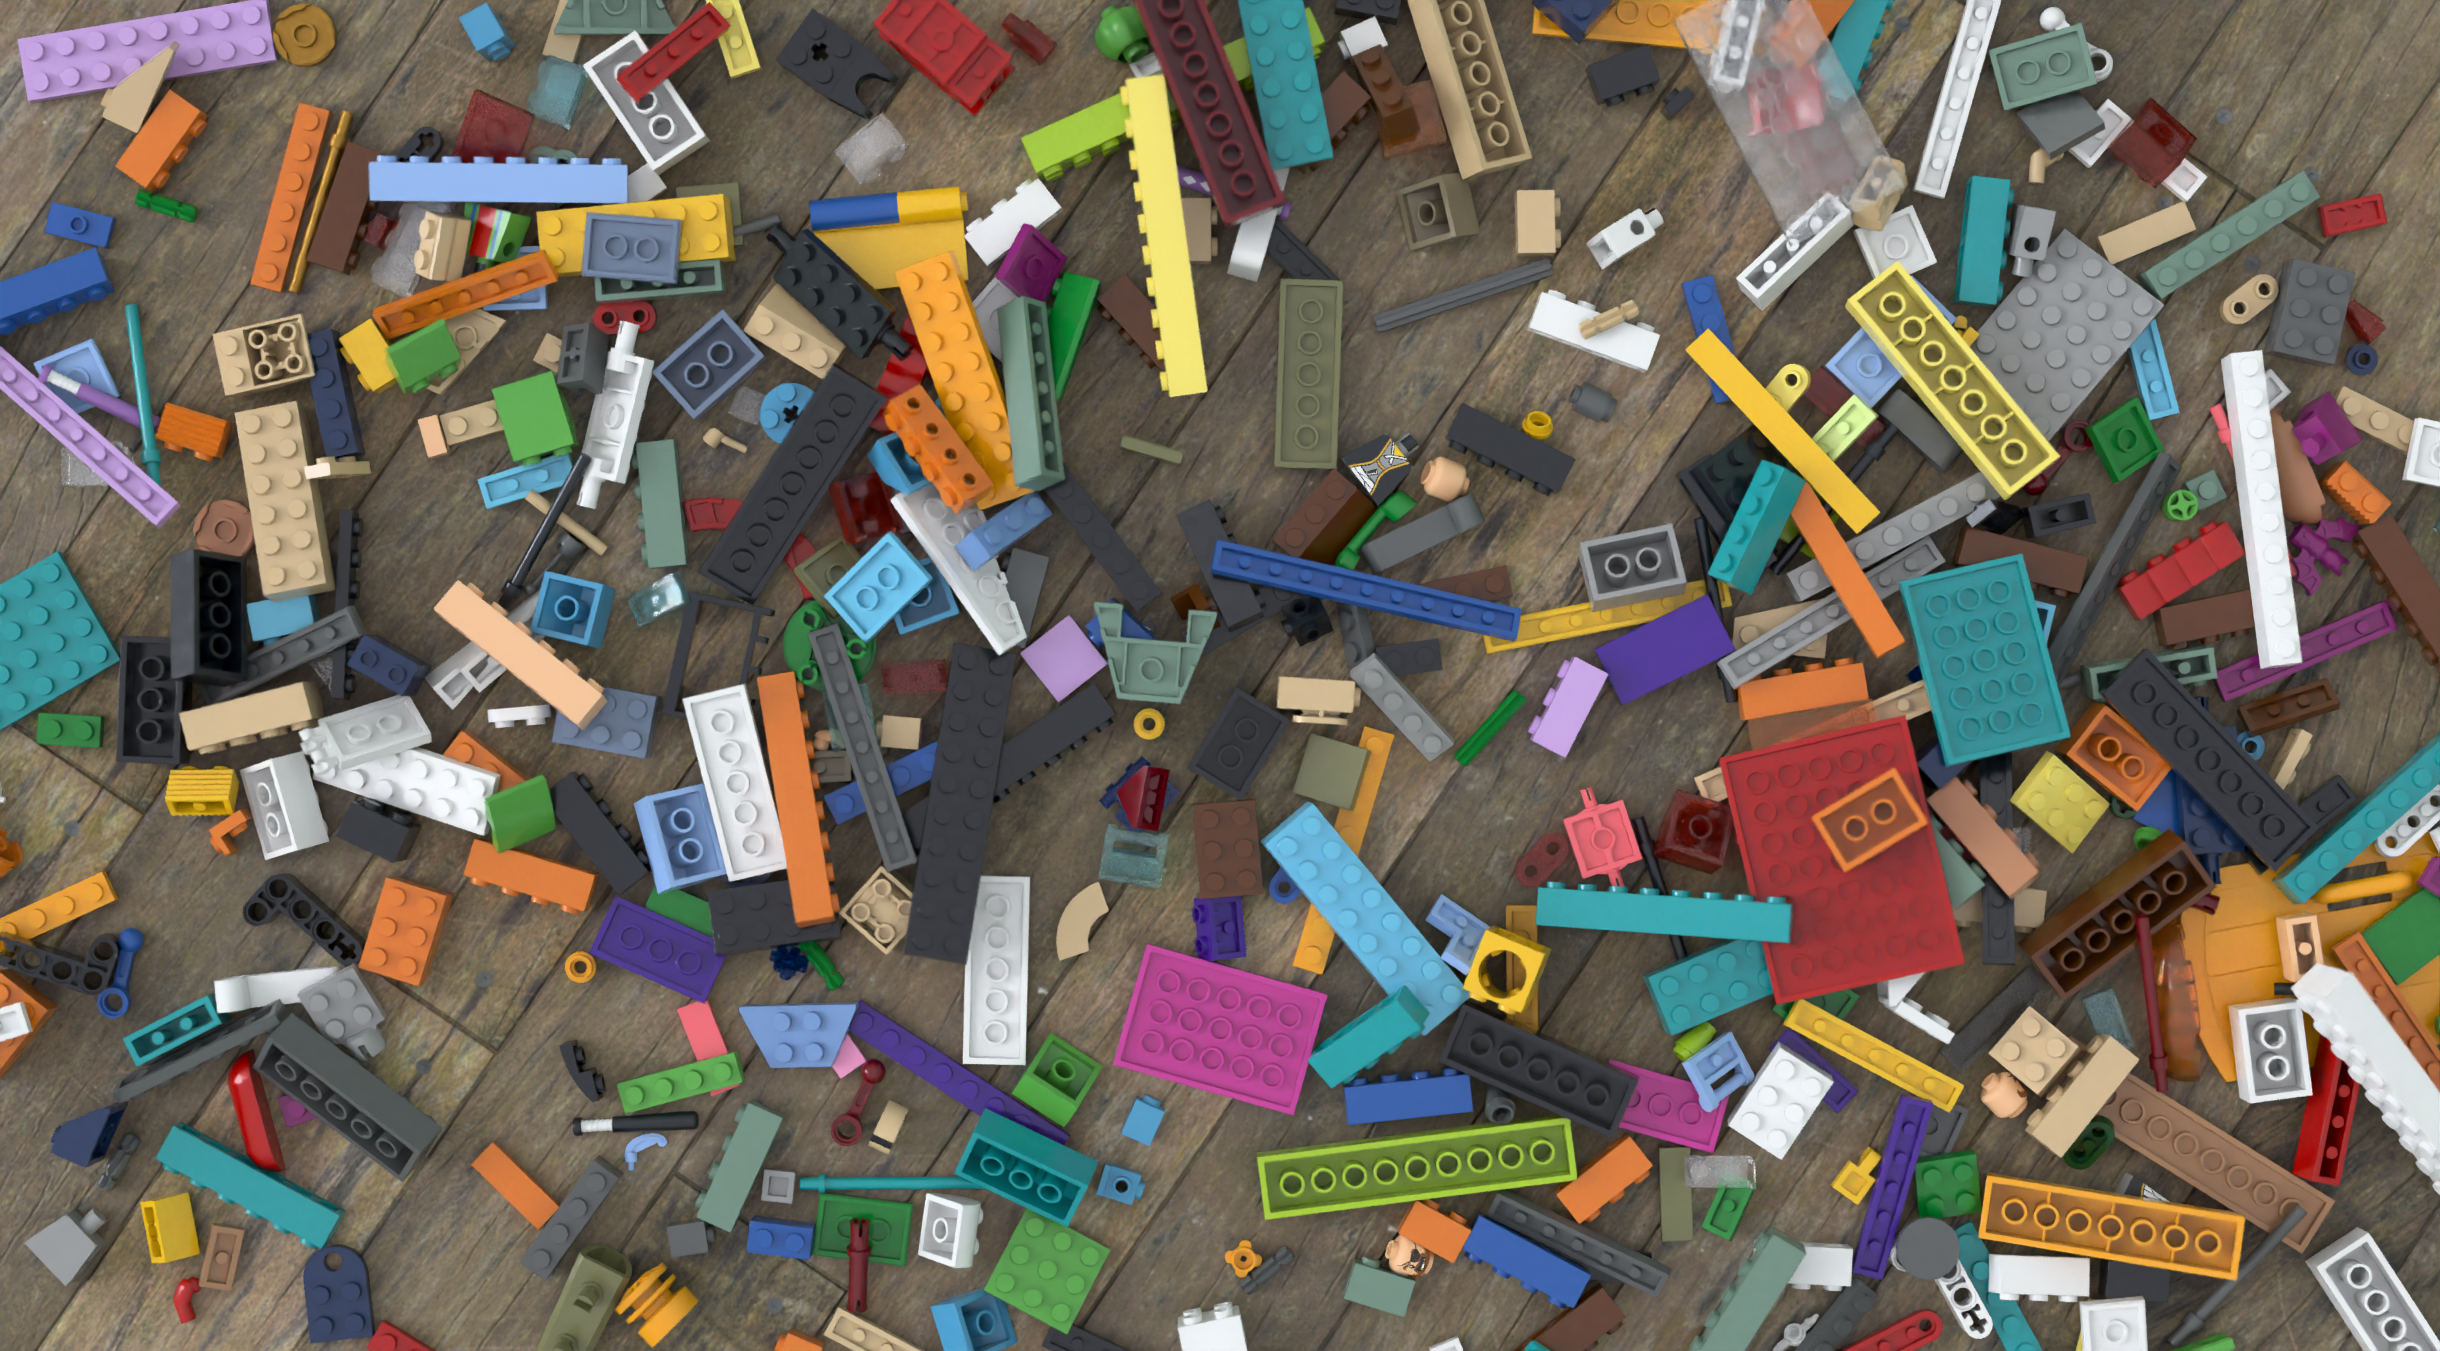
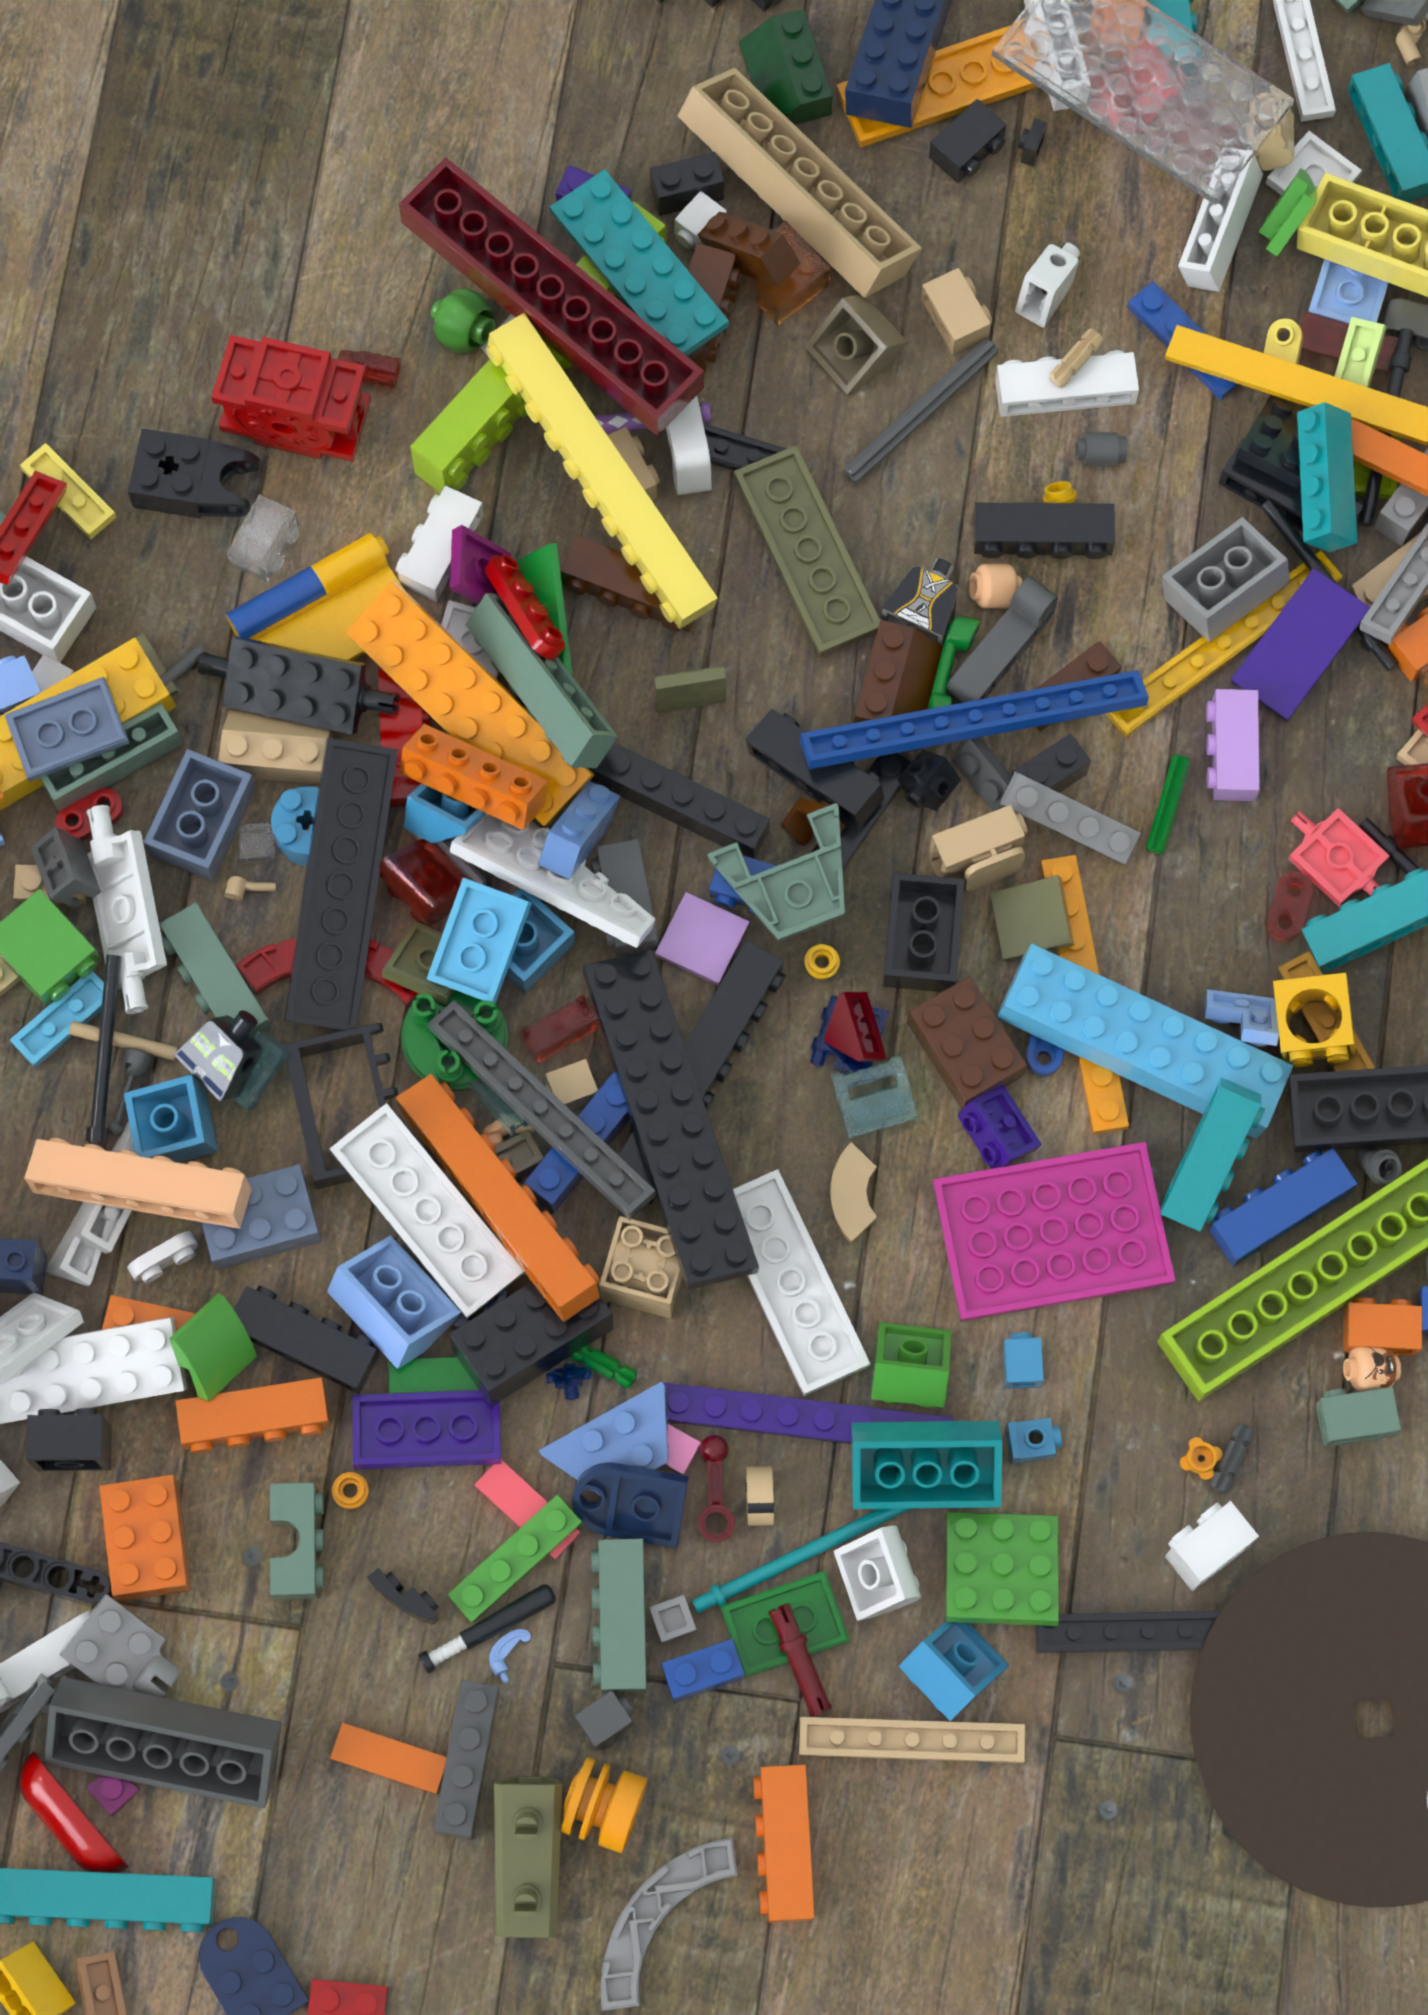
camera: 30 degrees left, 15 degrees down
(533, 964) = (299, 1573): none -> sand green arch
(635, 579) = (222, 1054): none -> black torso
(788, 1084) = (633, 1503): none -> dark blue plate
(1048, 322) = (524, 606): none -> red plate
(1852, 276) = (1289, 212): none -> bright green slope

